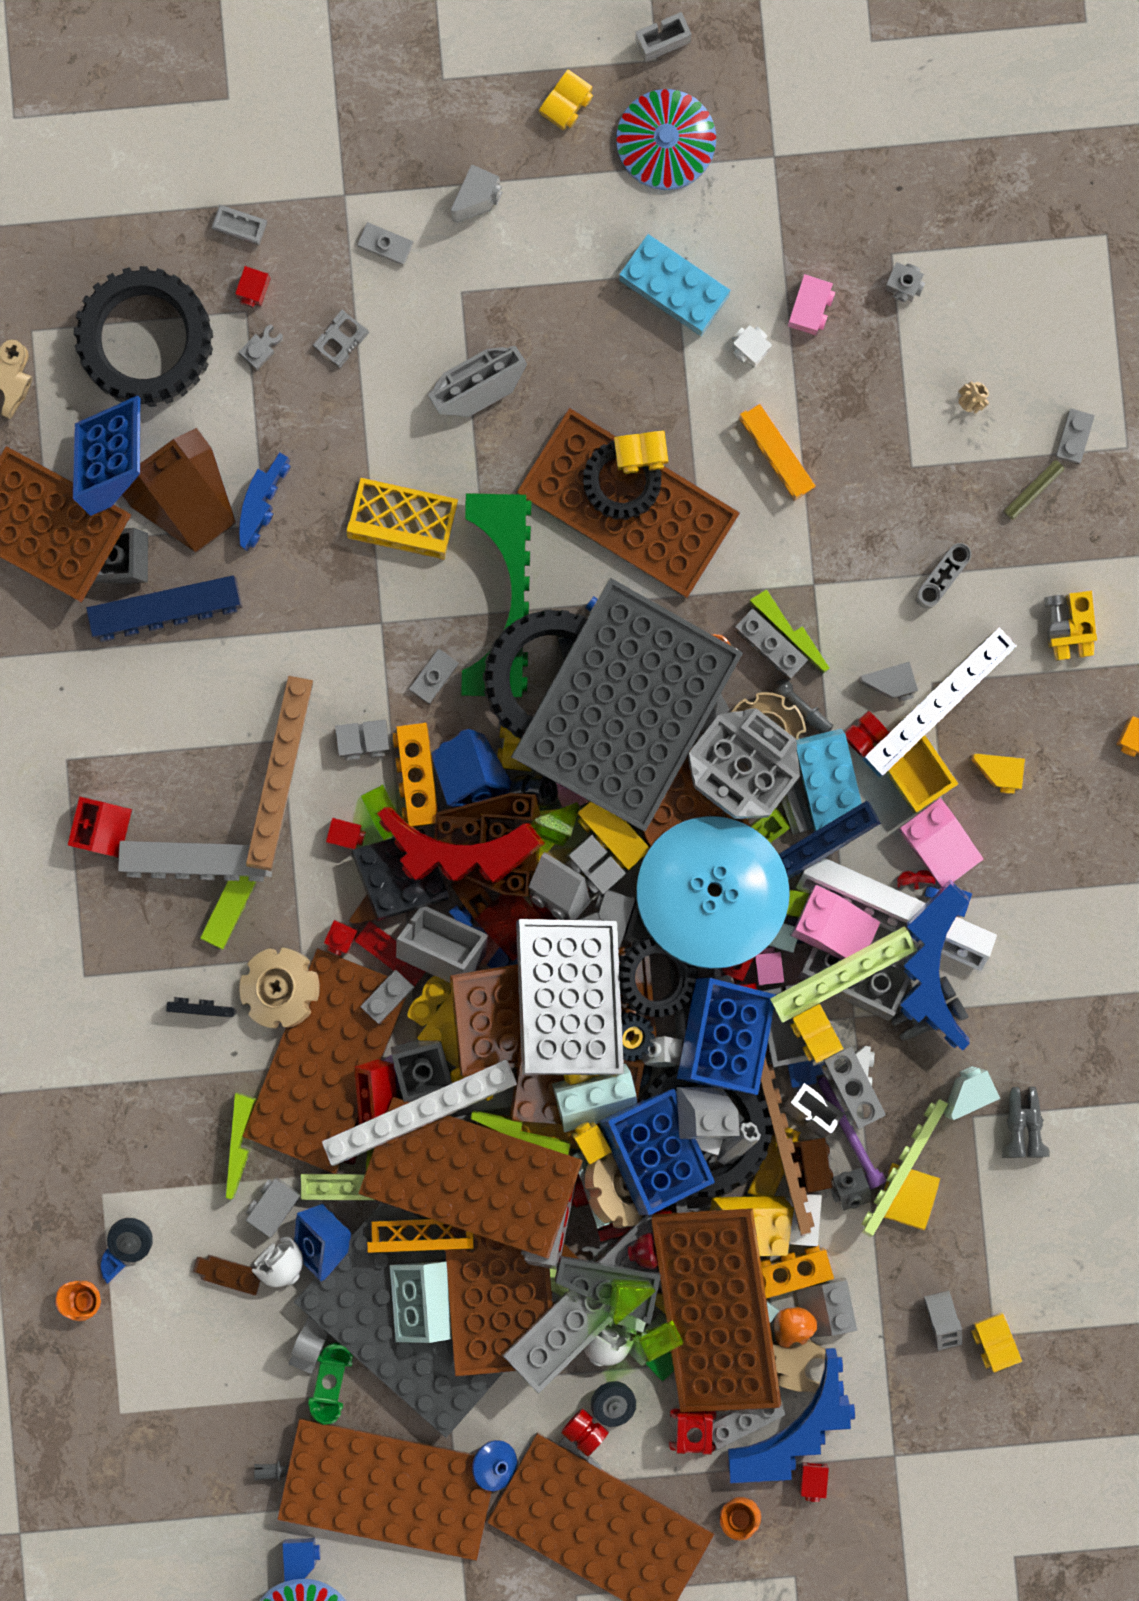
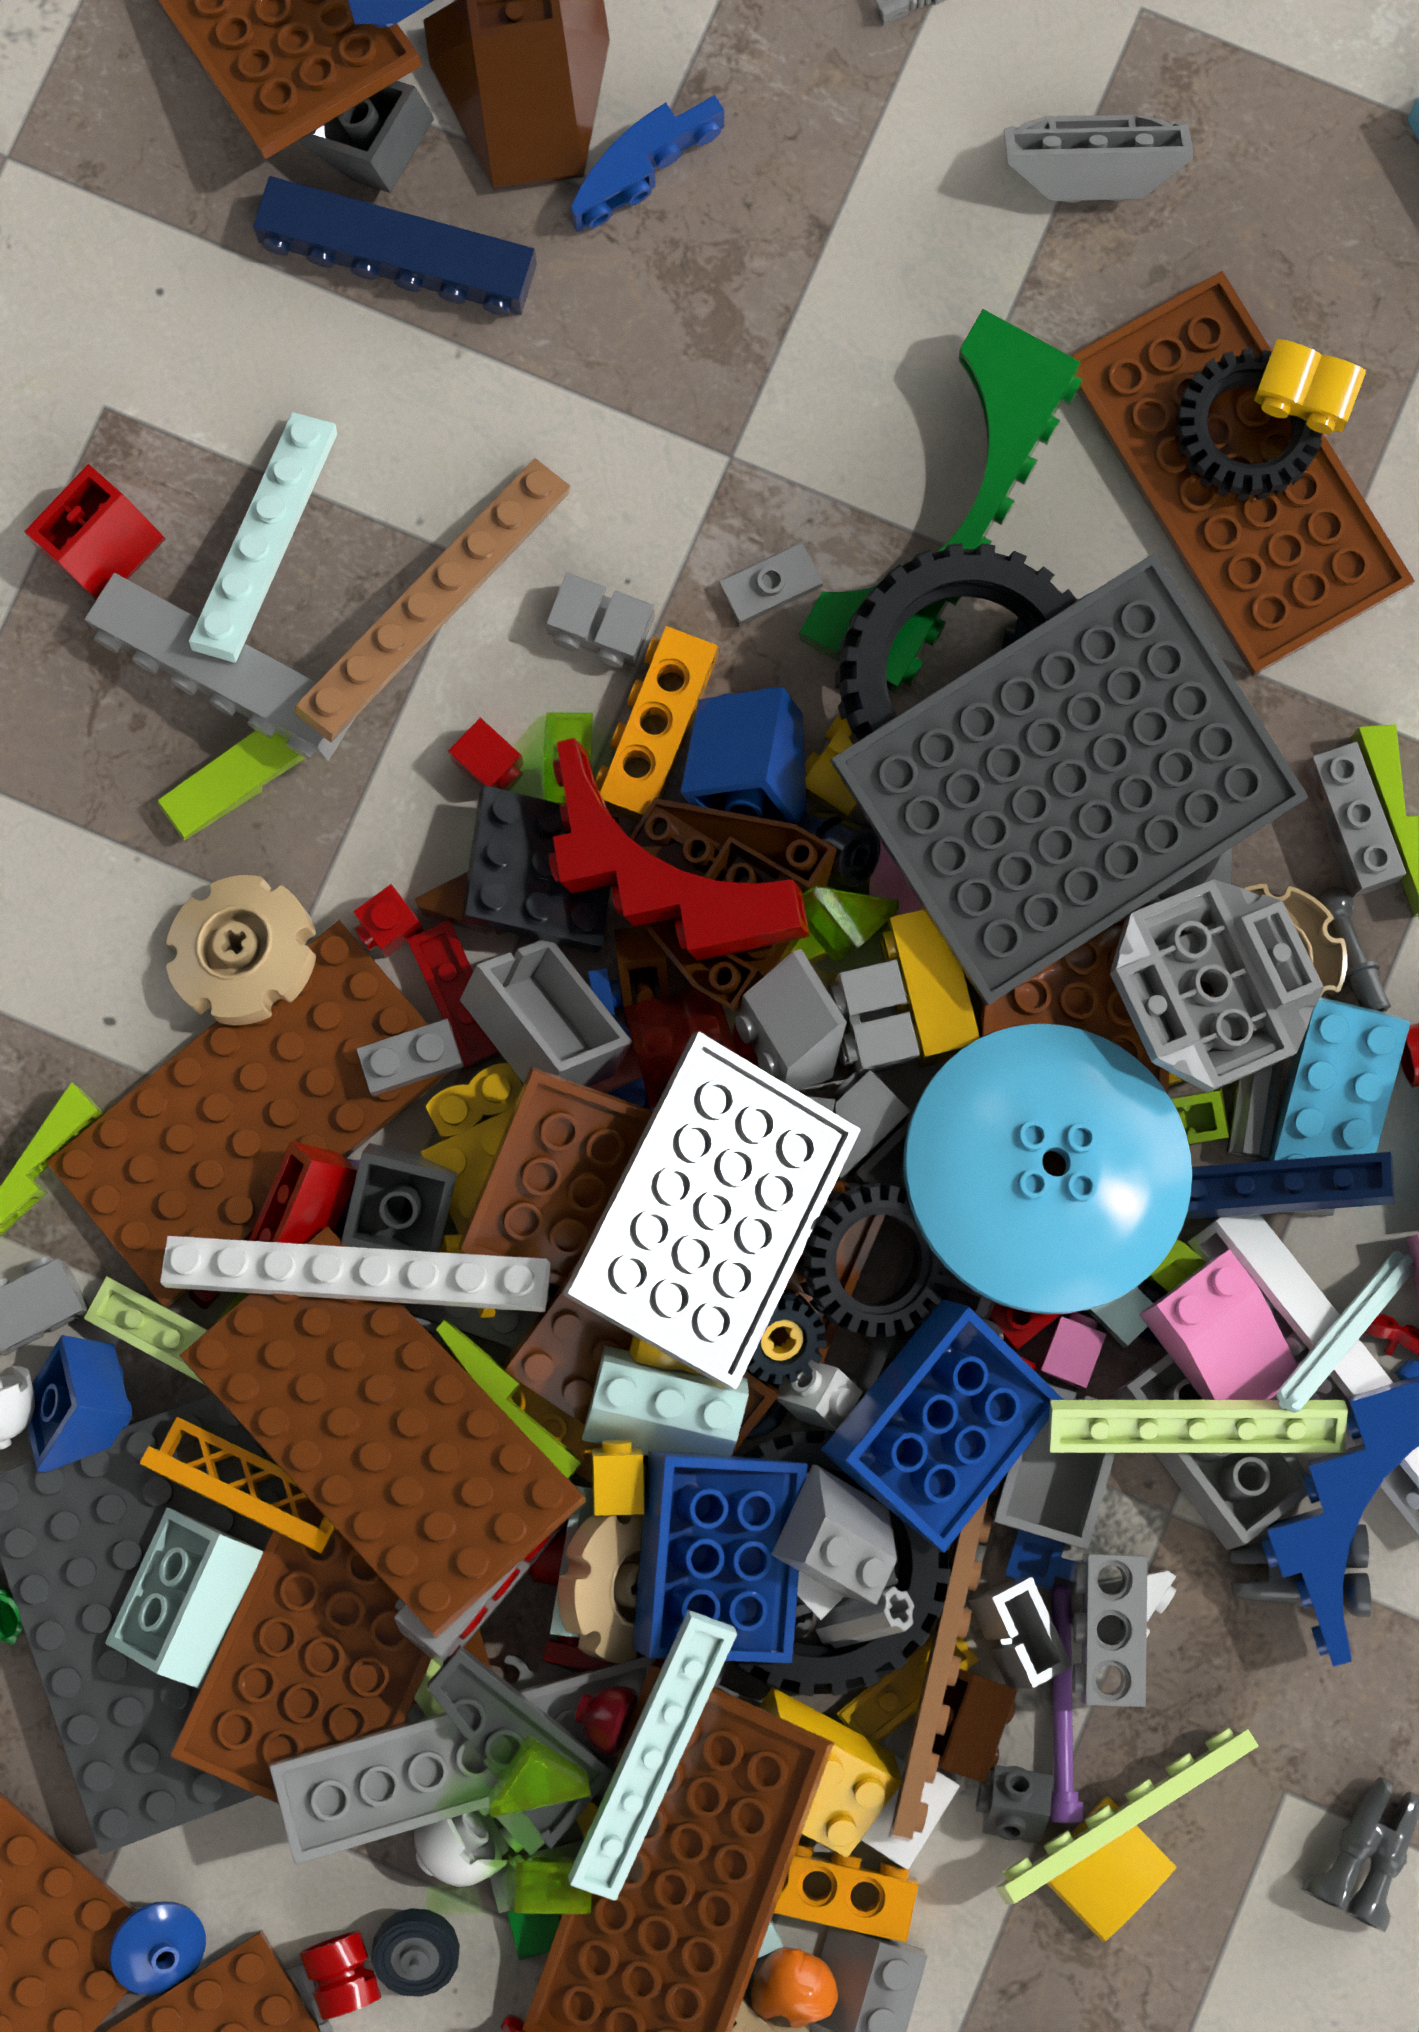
camera: 20 degrees right, 5 degrees down
(181, 785) = (263, 537): none -> light aqua plate
(205, 1007) = (100, 917): black hinge -> none
(391, 536) = (823, 326): yellow fence -> none
(673, 1258) = (652, 1755): none -> light aqua plate
(817, 1034) = (1099, 1503): yellow brick -> none
(889, 892) = (1345, 1332): none -> light aqua axle
(970, 1092) = (1310, 1746): light aqua slope -> none

